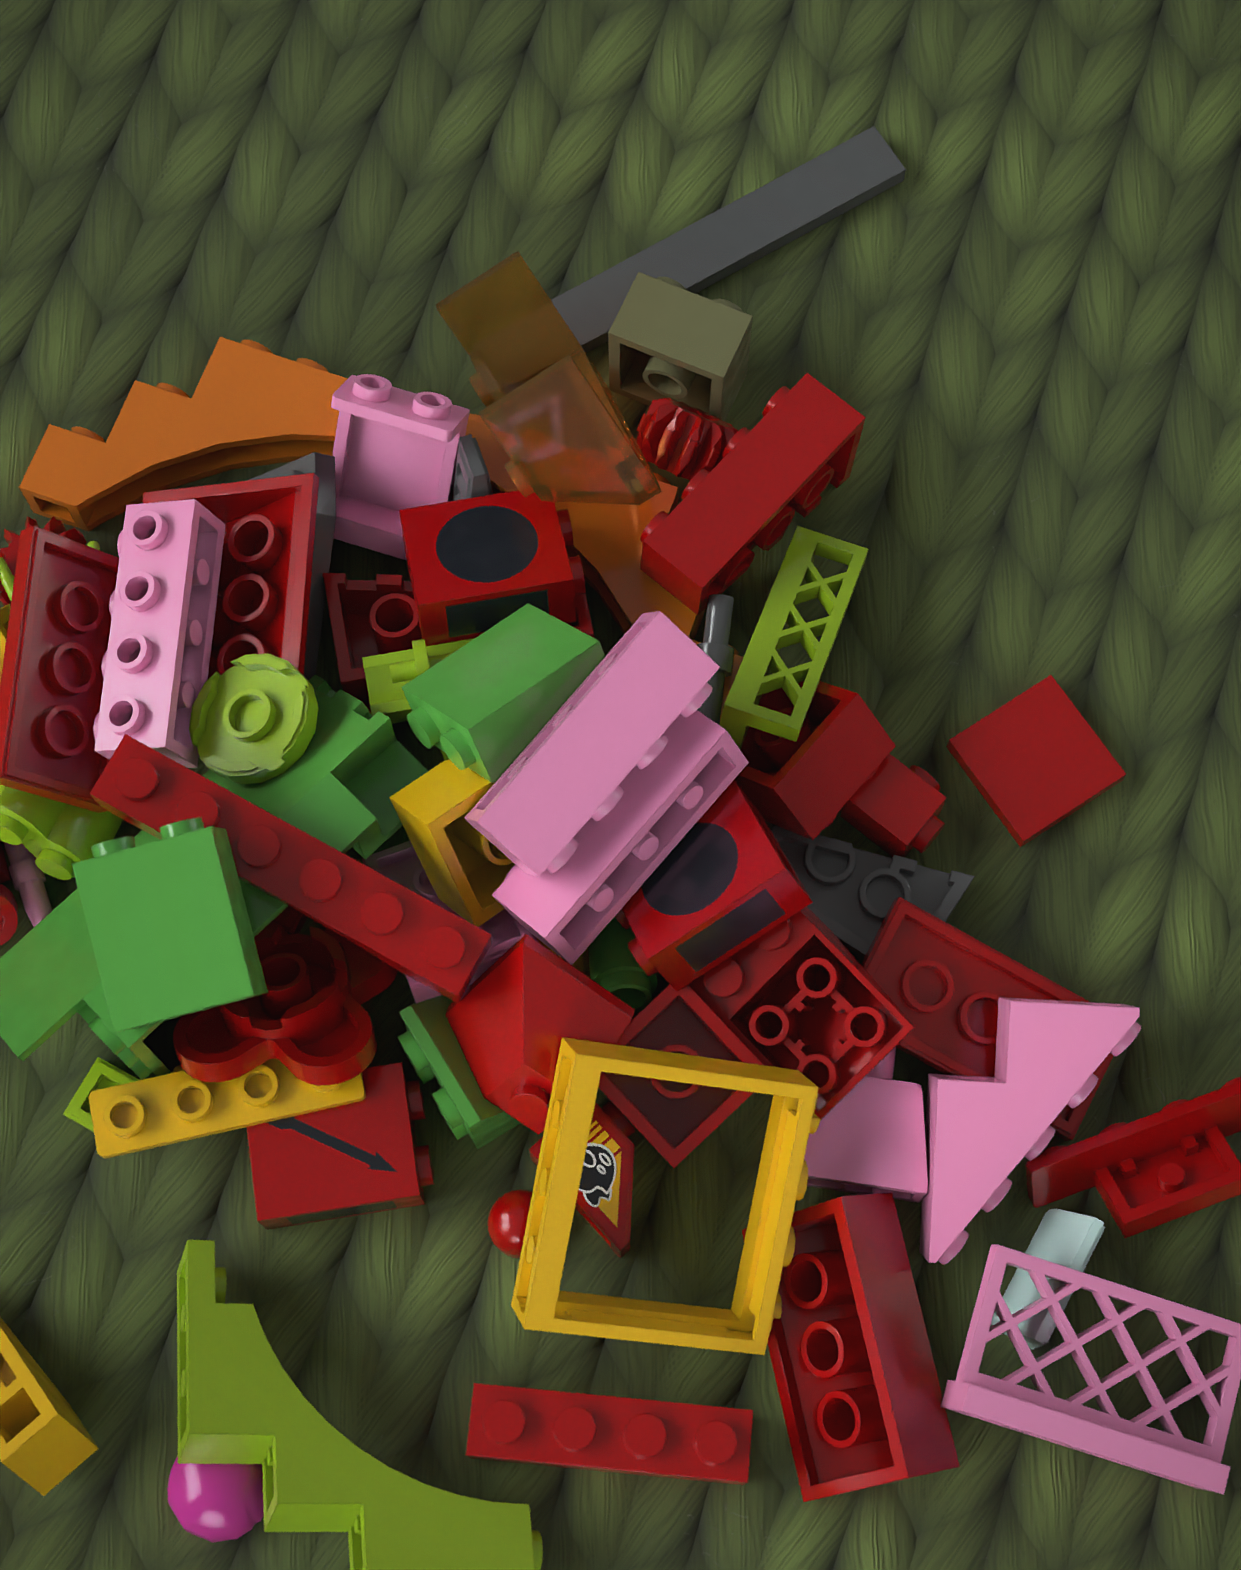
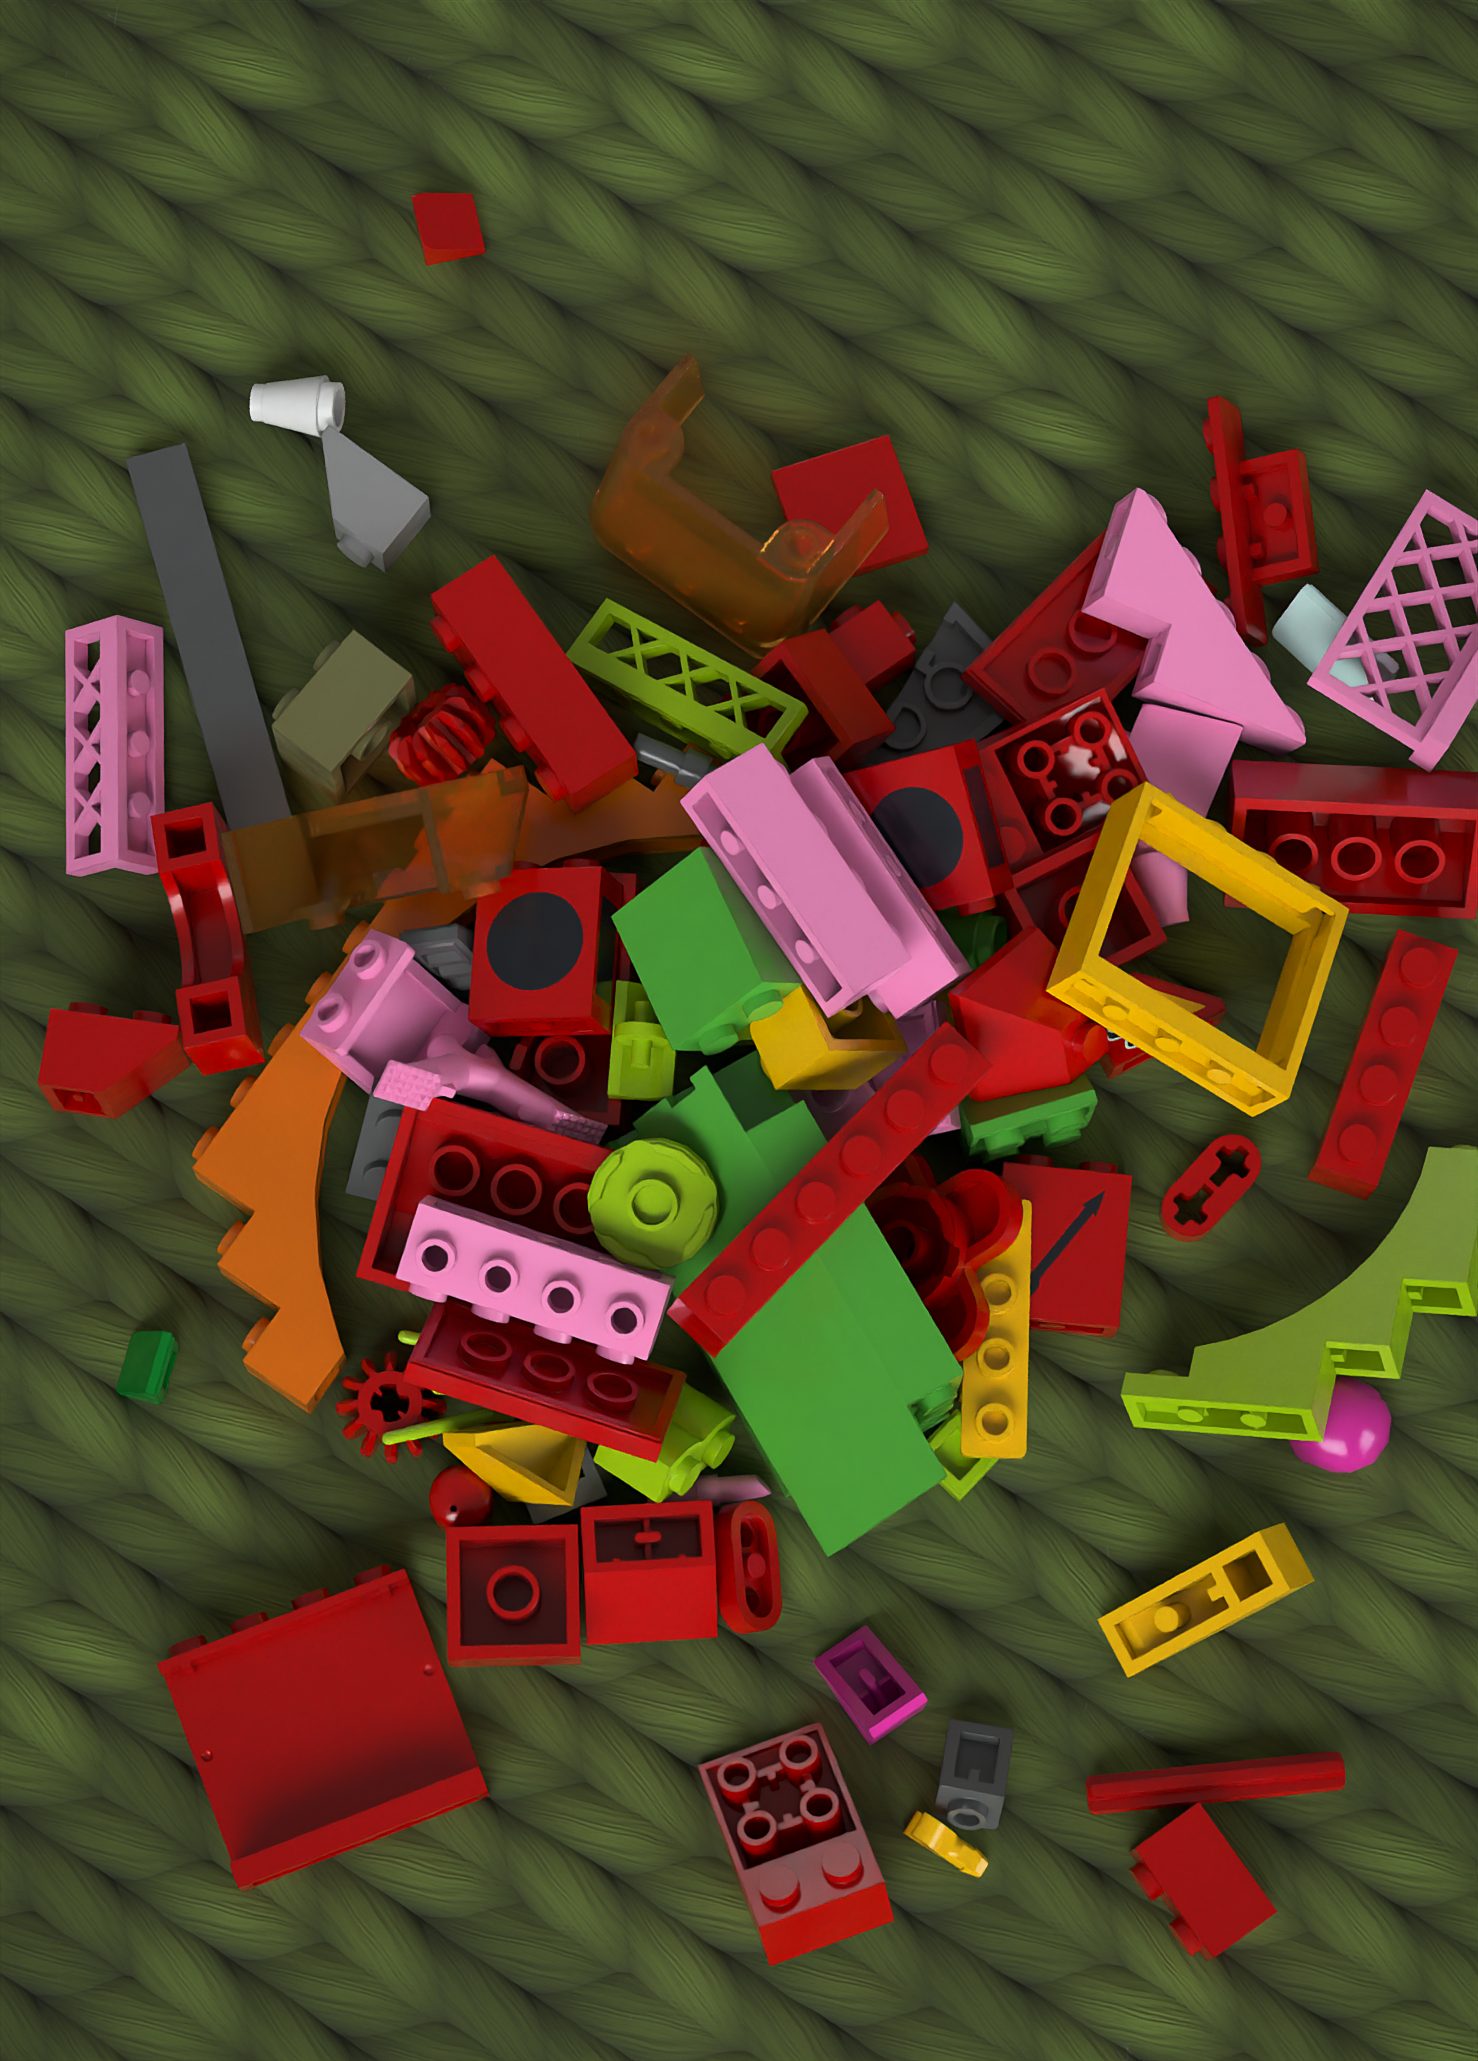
camera: 80 degrees left, 5 degrees up
(42, 367) = (148, 1366): none -> green slope
(168, 925) = (877, 1293): bright green brick -> none
(302, 238) = (107, 1062): none -> red slope
(351, 538) = (484, 1079): none -> bright pink piece
(371, 317) = (217, 980): none -> red arch
(448, 1272) = (1220, 1198): none -> red beam
(508, 1221) = (1169, 1101): red piece -> none
(605, 190) = (124, 742): none -> bright pink fence
(736, 1159) = (1162, 884): none -> bright pink cone
(896, 329) = (370, 504): none -> light grey slope
(942, 704) = (701, 557): none -> clear orange windscreen
(974, 253) = (300, 404): none -> white cone
(1191, 330) = (447, 226): none -> red slope

